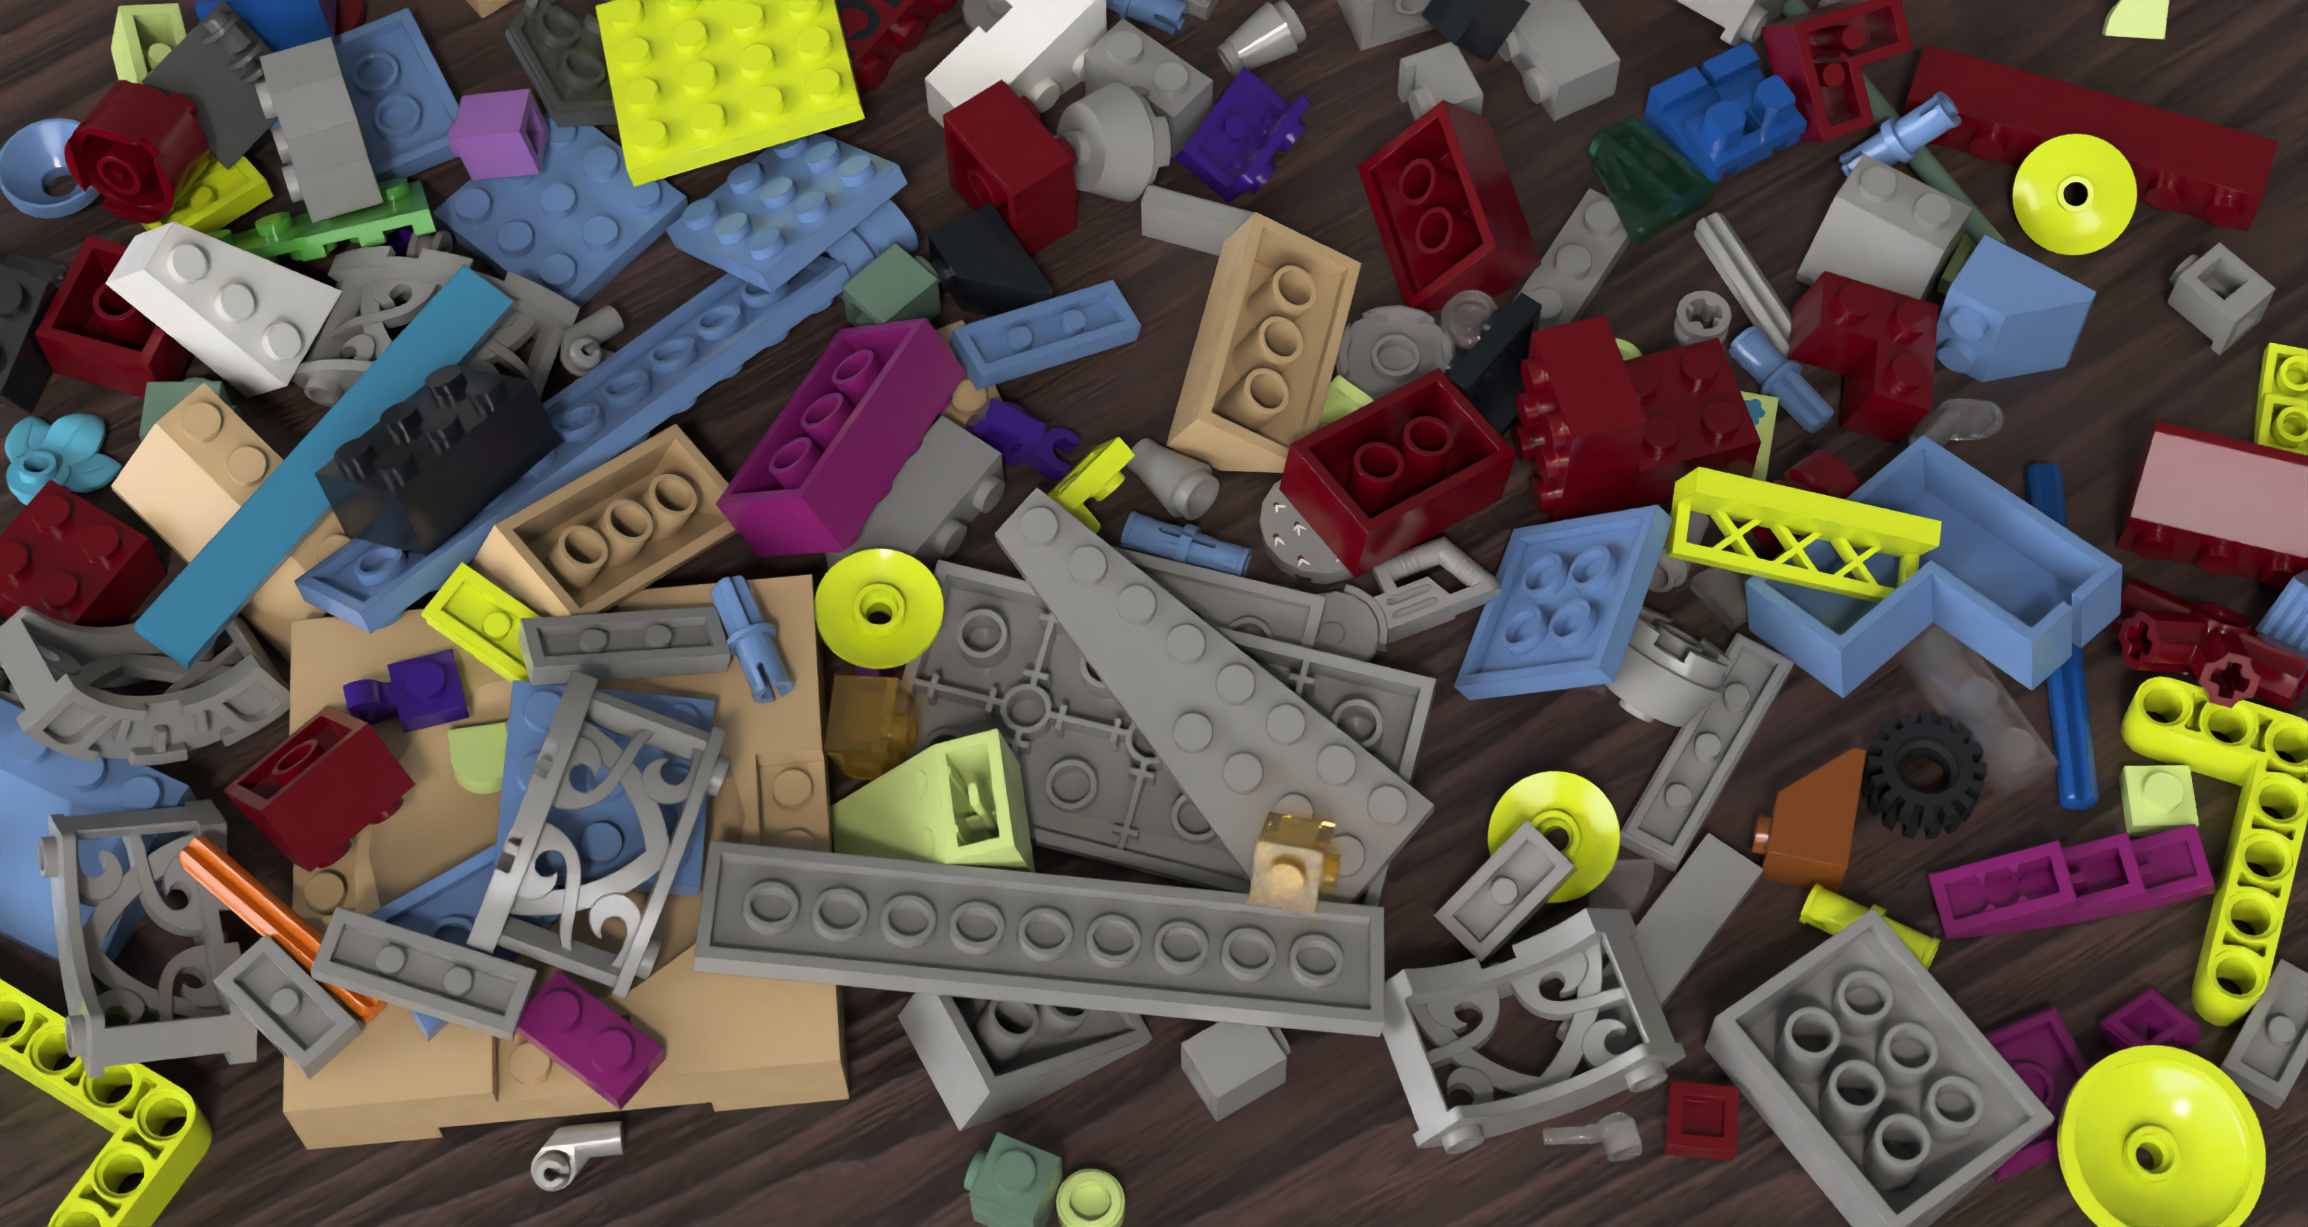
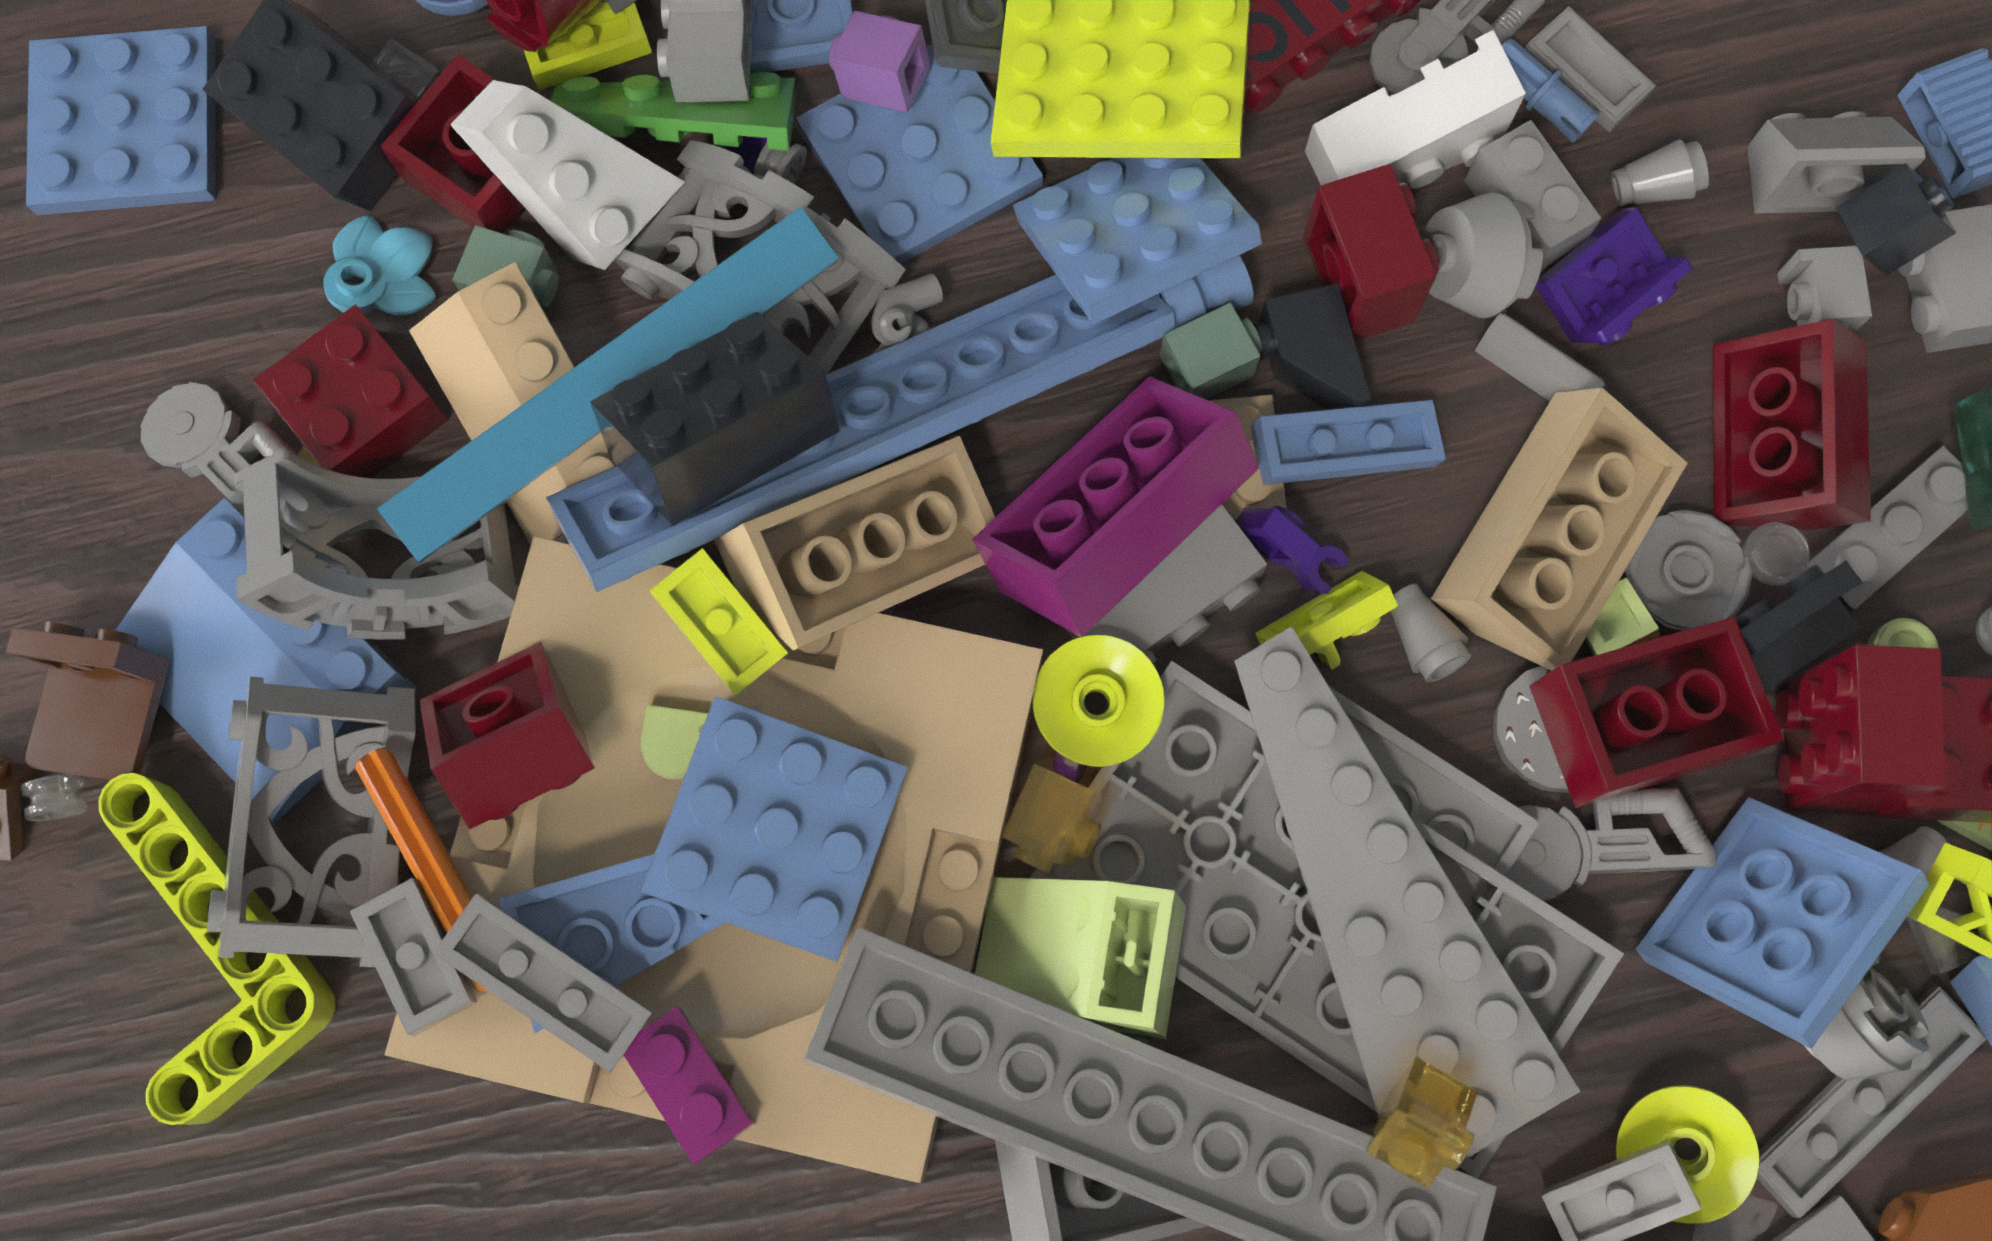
camera: 20 degrees right, 15 degrees up
(420, 693) = (632, 659): dark purple plate -> none
(522, 891) = (656, 945): light grey fence -> none
(571, 1149) = (643, 1154): light grey arm -> none
(624, 645) = (834, 685): light grey plate -> none
(751, 638) = (962, 708): medium blue axle -> none
(1184, 545) = (1417, 715): medium blue pin -> none

